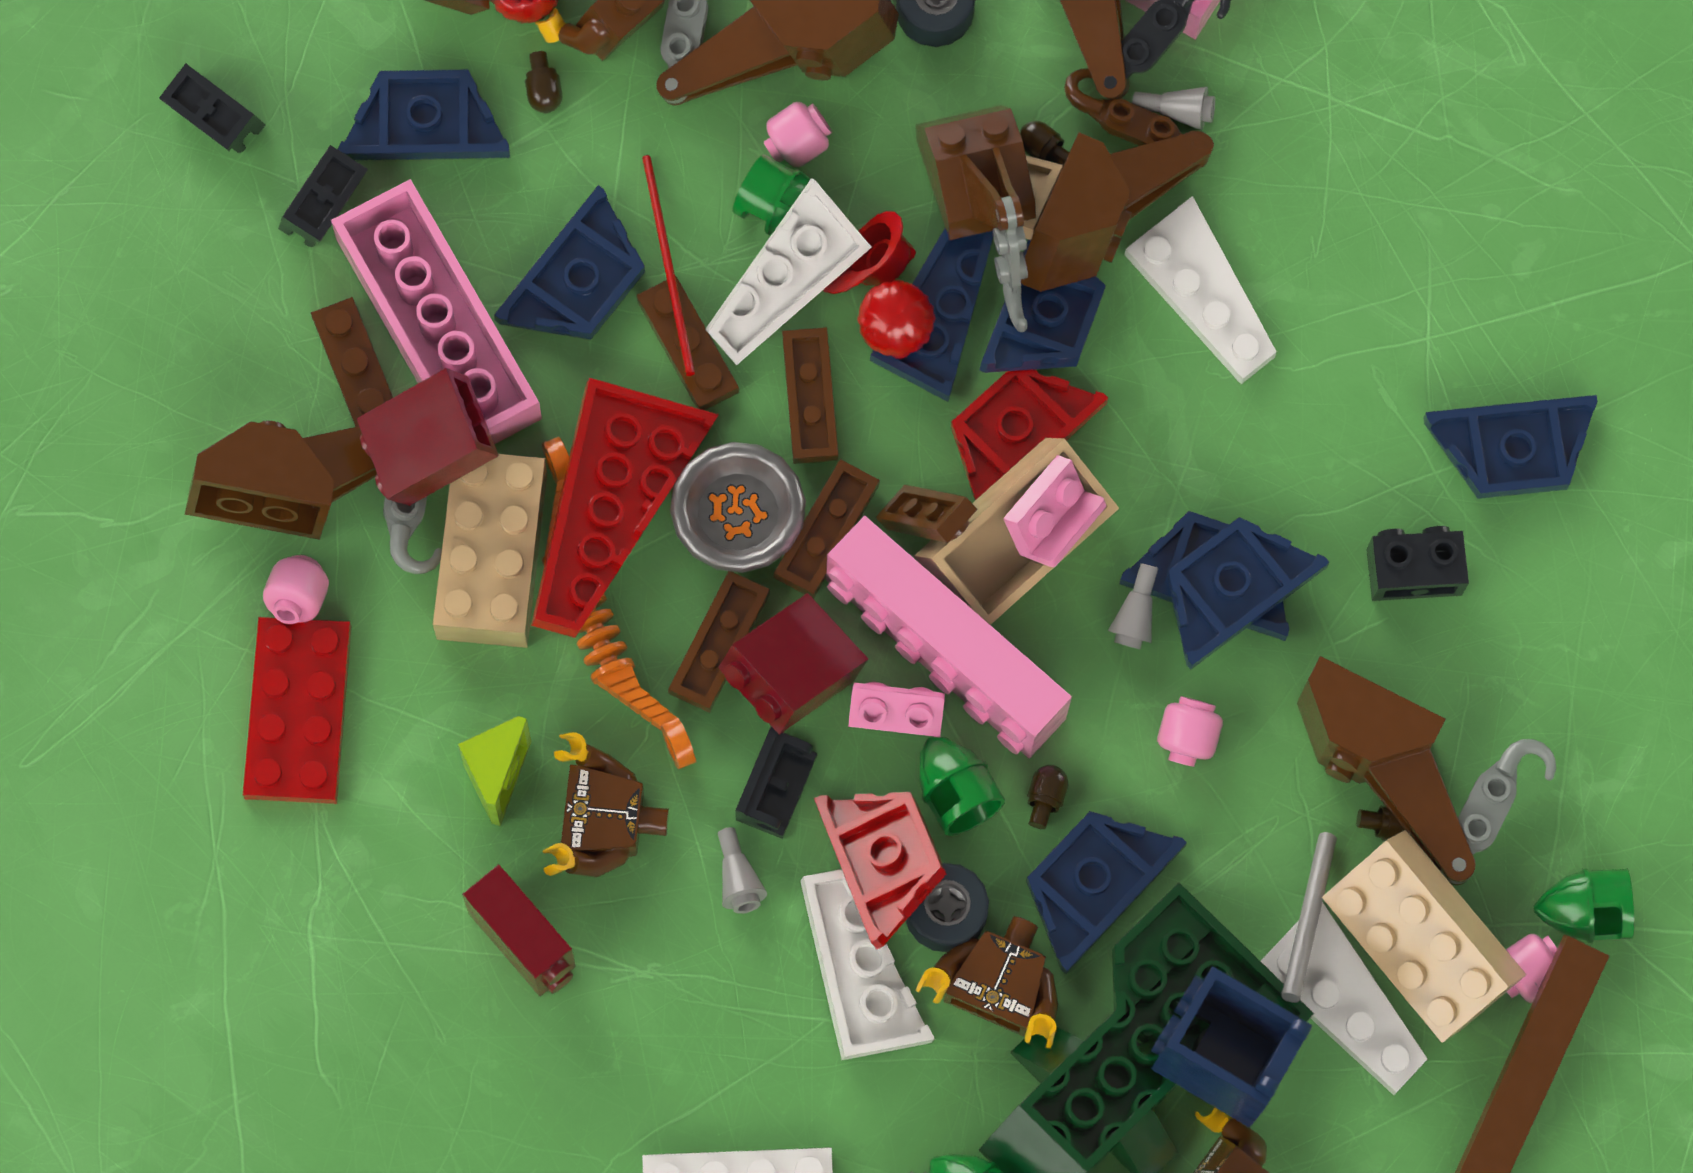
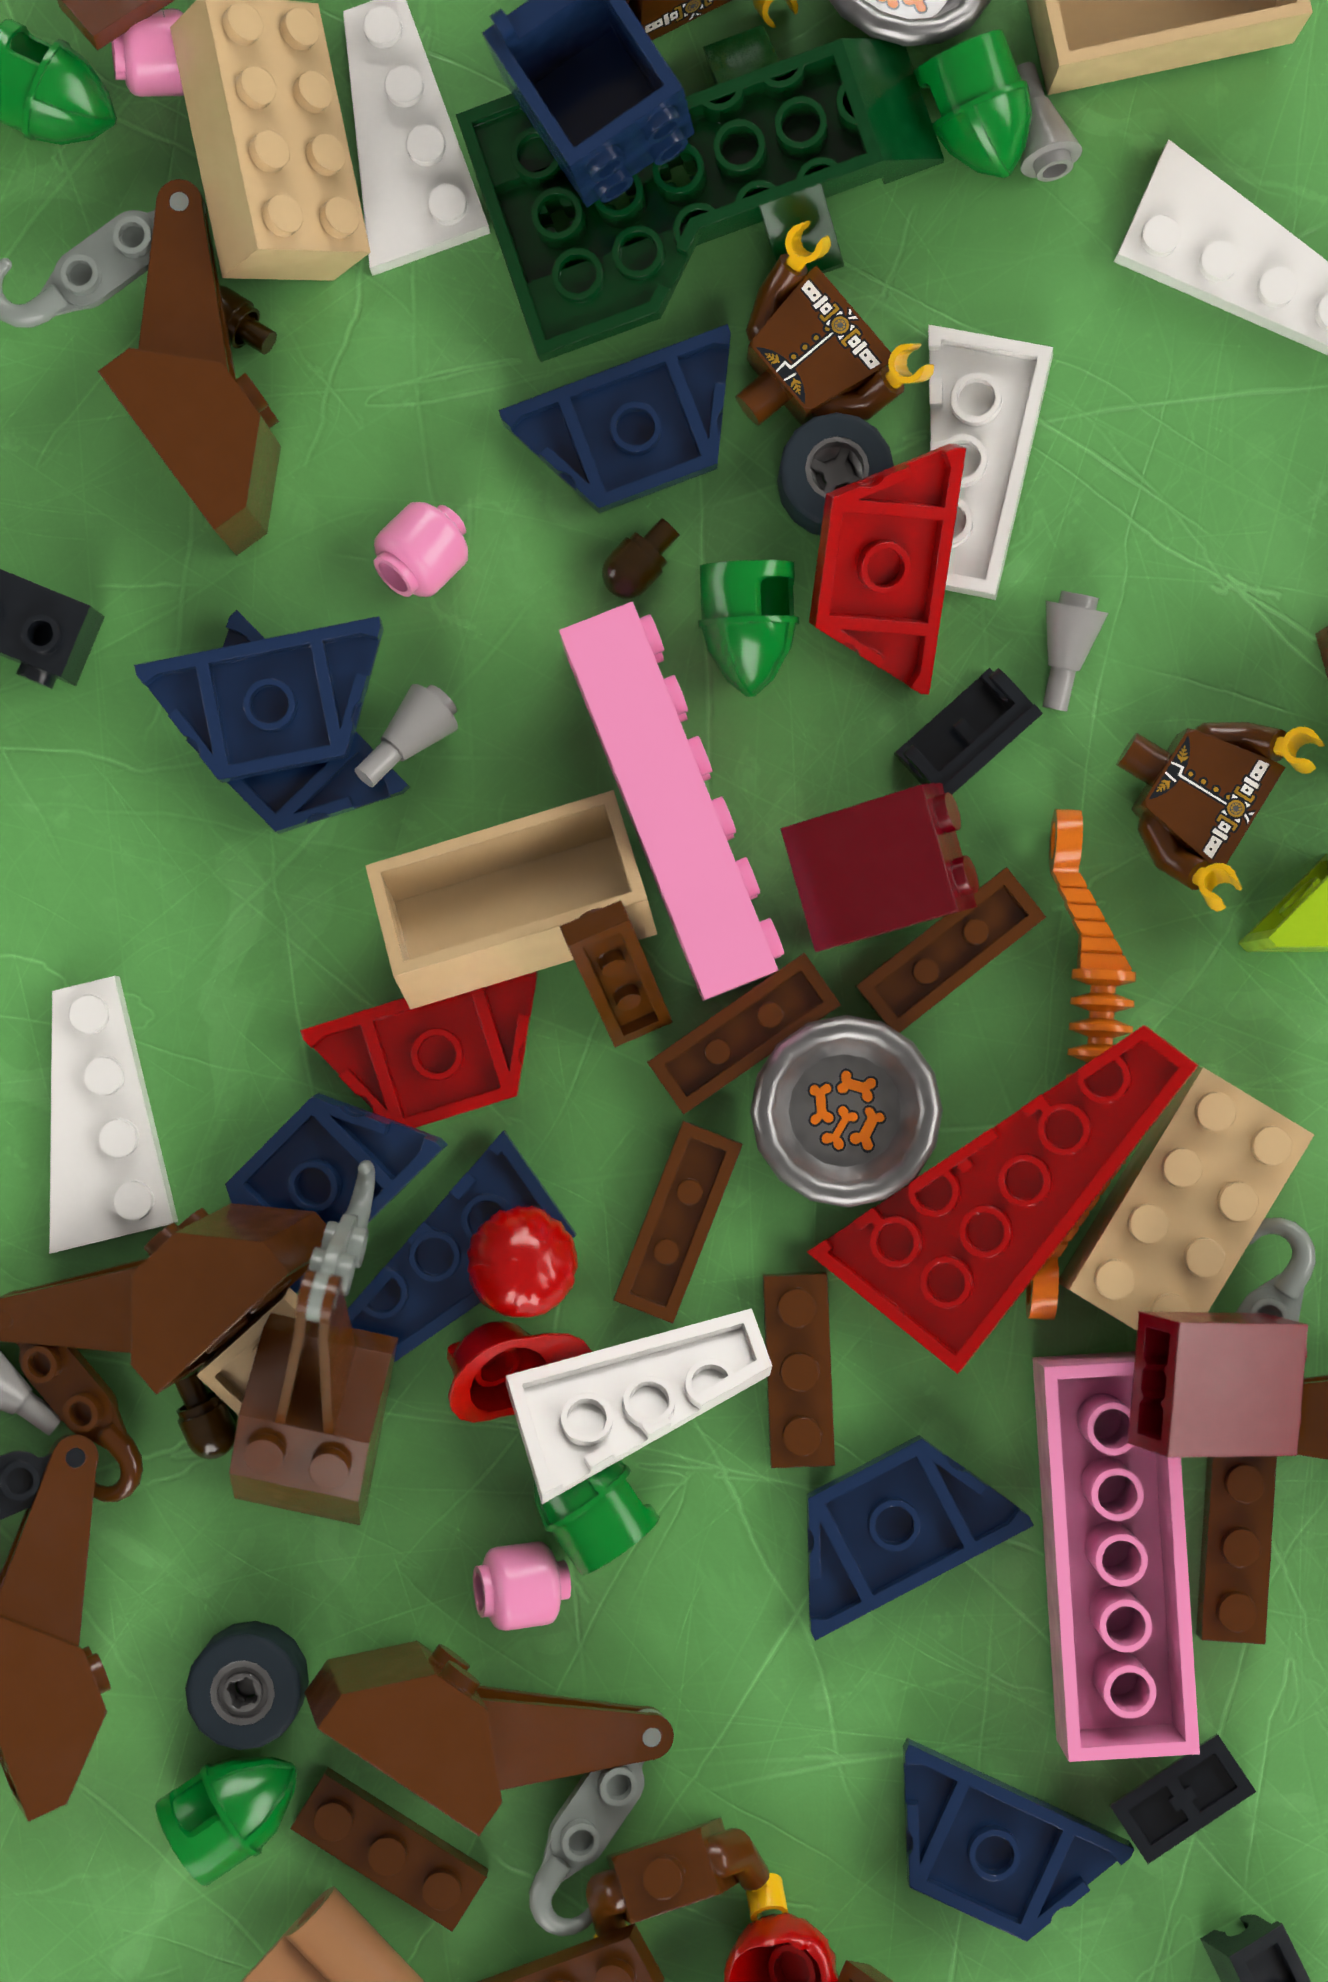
camera: 150 degrees left, 15 degrees up
(543, 84) = (817, 1819): dark brown cylinder -> none
(668, 266) = (777, 1483): red axle -> none
(896, 709) = (773, 752): bright pink bracket -> none
(1053, 514) = (456, 886): bright pink bracket -> none
(1309, 917) = (397, 241): light grey bar -> none

